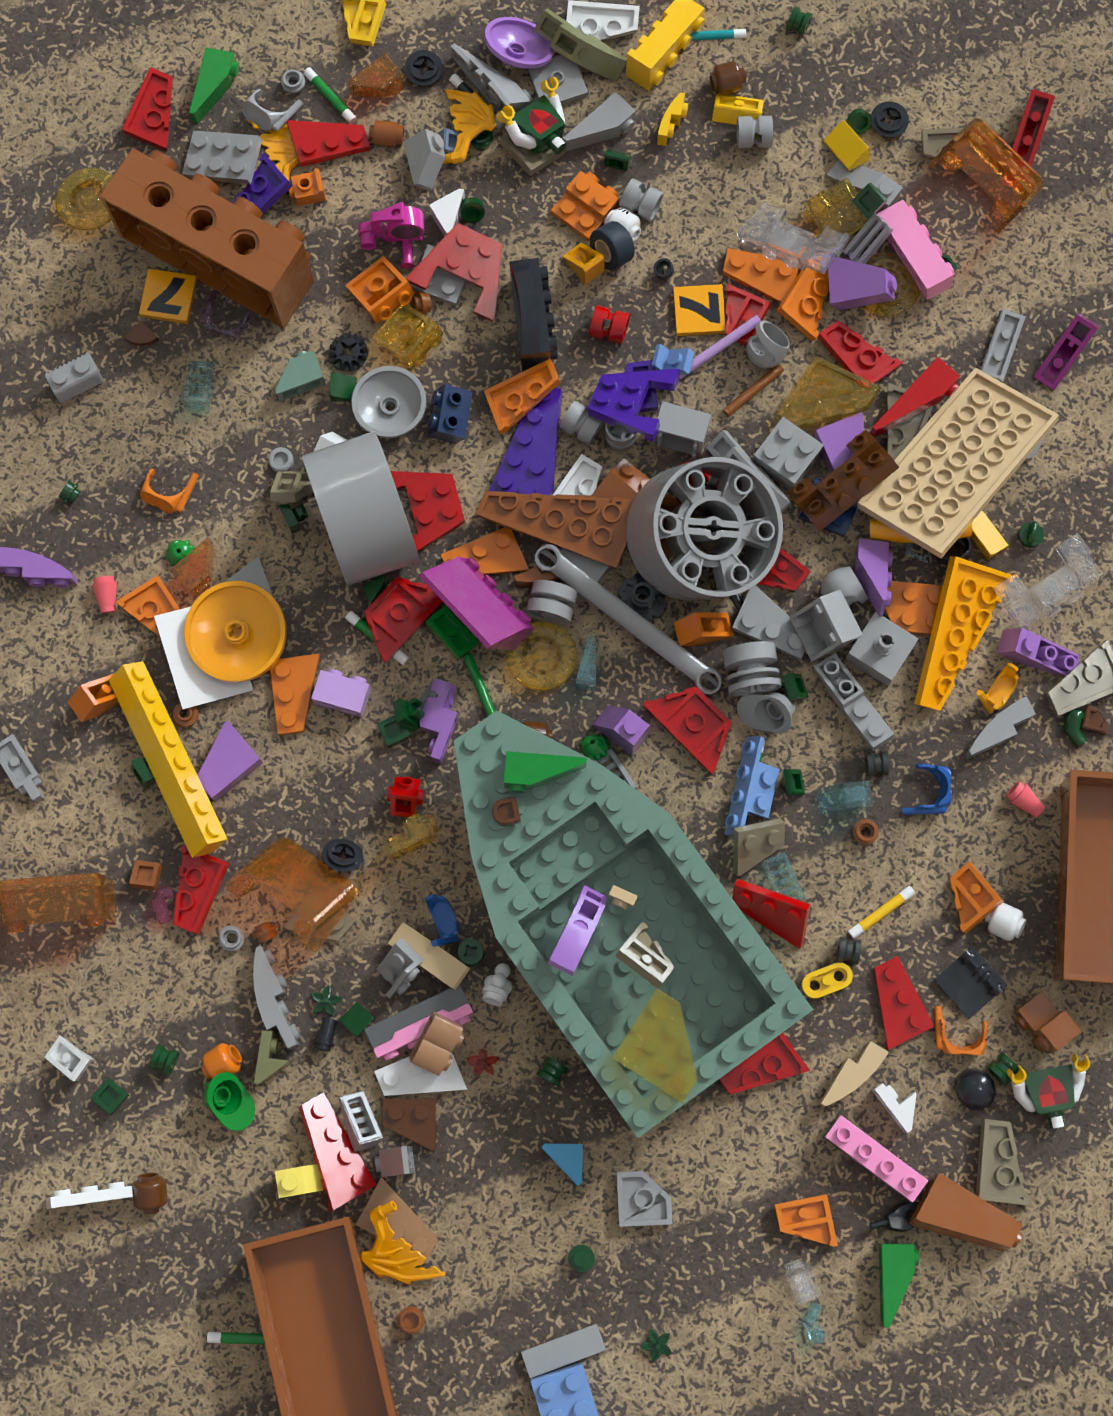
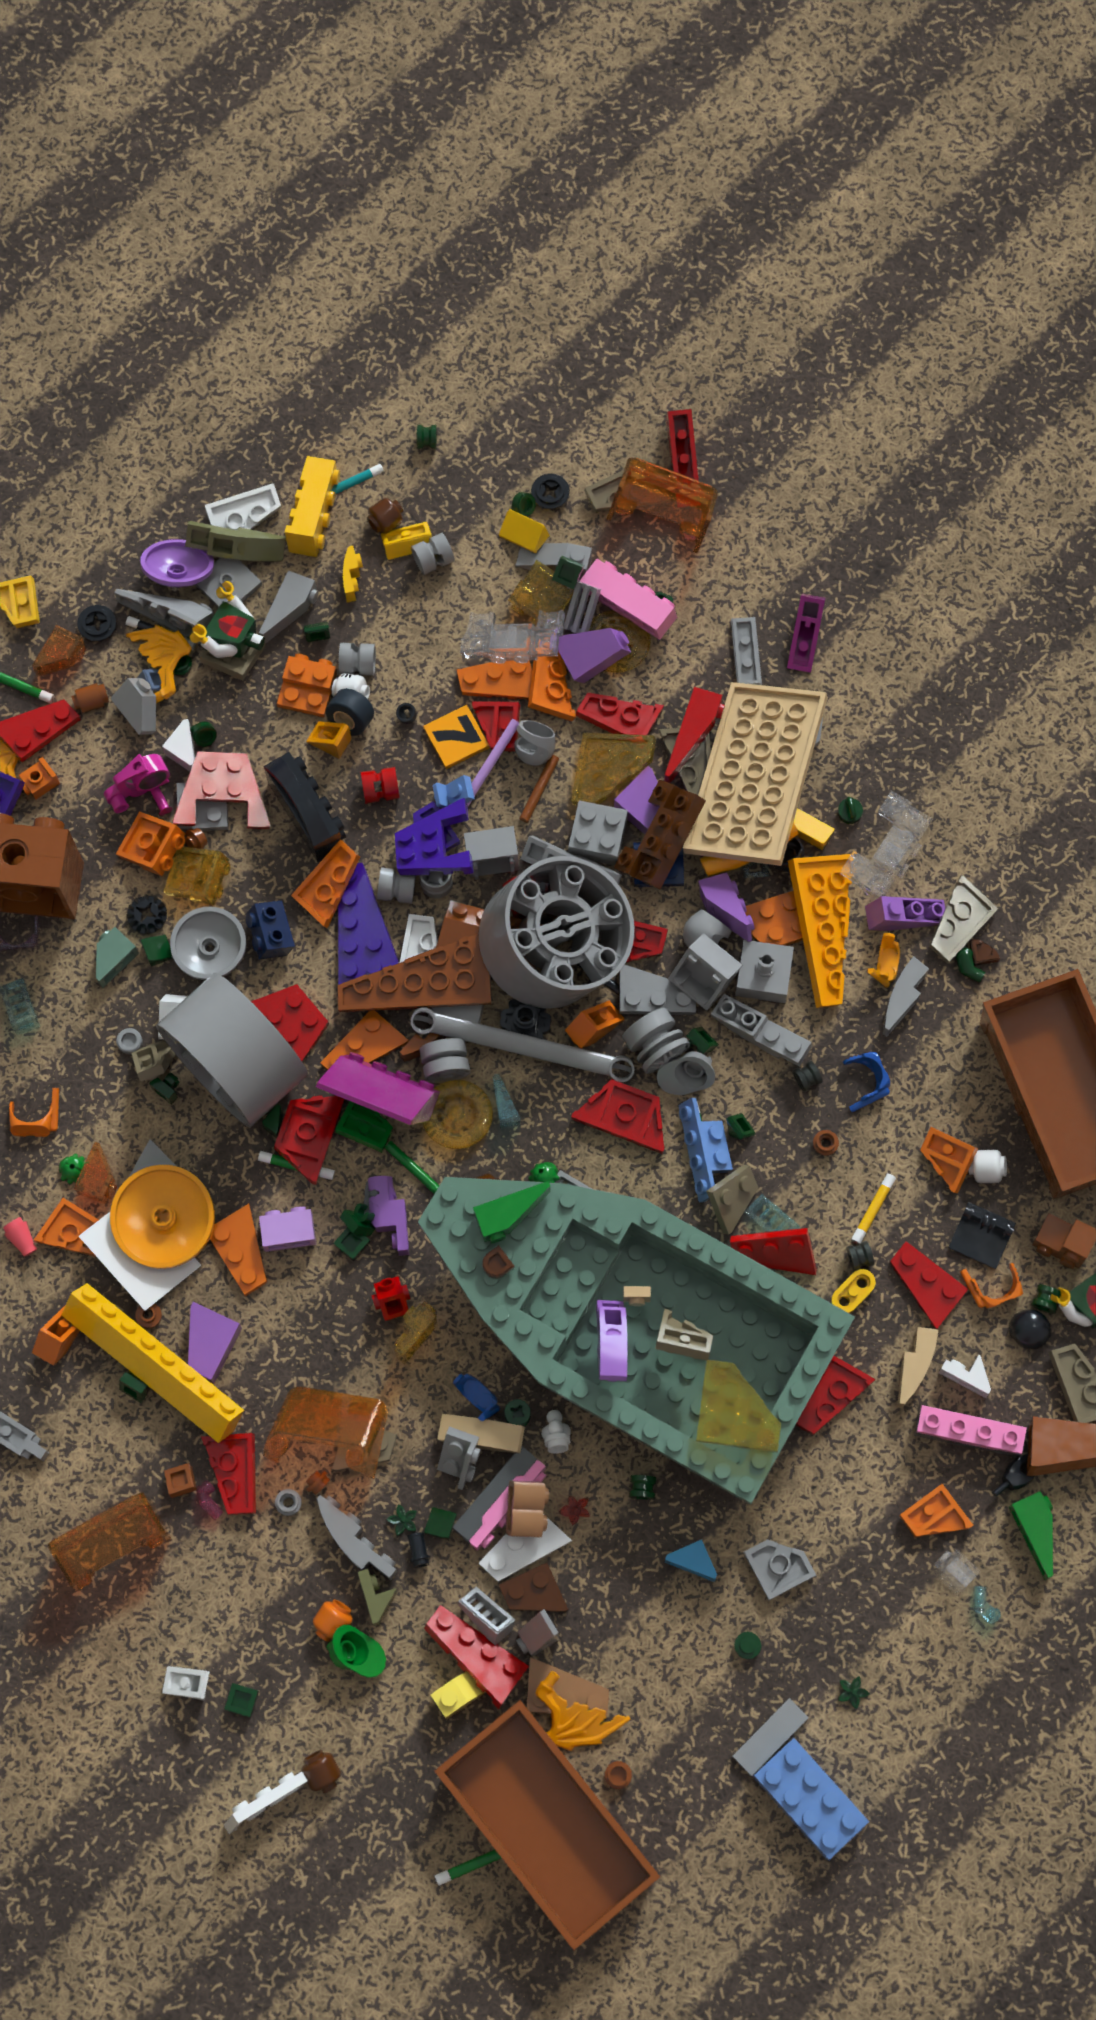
camera: 25 degrees left, 5 degrees down
(164, 1059) = (277, 1642): dark green wheel -> none
(352, 853) = (364, 1372): black gear -> none
(622, 728) = (563, 1145): medium lavender slope -> none
(844, 798) = (793, 1120): clear light blue slope -> none
(1024, 798) = (954, 1049): coral cone -> none

